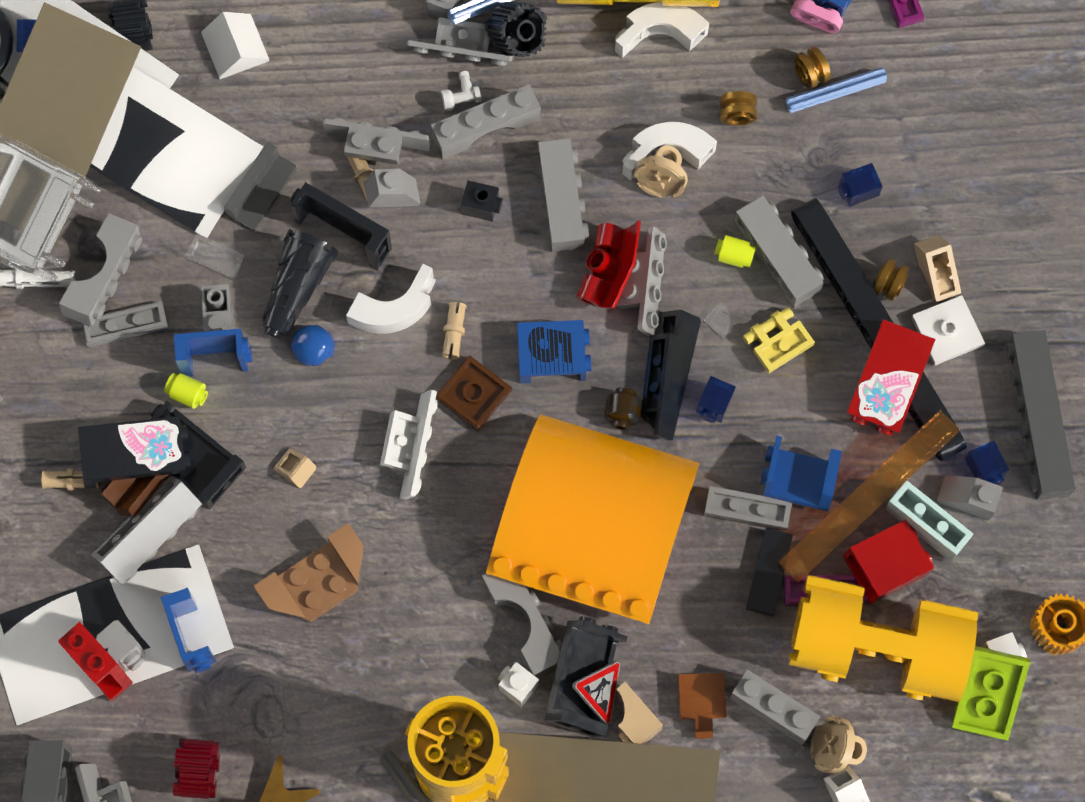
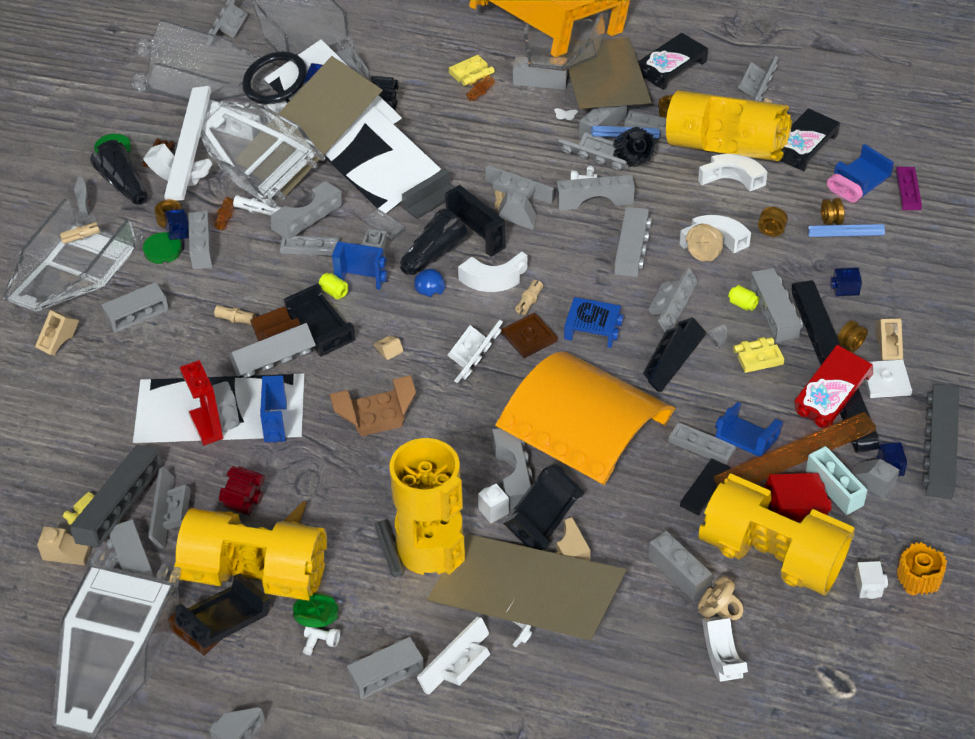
camera: 20 degrees right, 25 degrees down
(133, 450) = (282, 301): black panel -> none
(234, 43) = (445, 121): white slope -> none
(481, 201) = (575, 232): black brick -> none
(599, 690) = (551, 518): piece -> none
(610, 265) = (647, 283): red panel -> none
(623, 408) = (631, 365): dark brown head -> none
(702, 700) = (626, 550): dark orange piece -> none
(715, 400) = (700, 375): clear blue brick -> none
(991, 693) = (851, 595): lime plate -> none

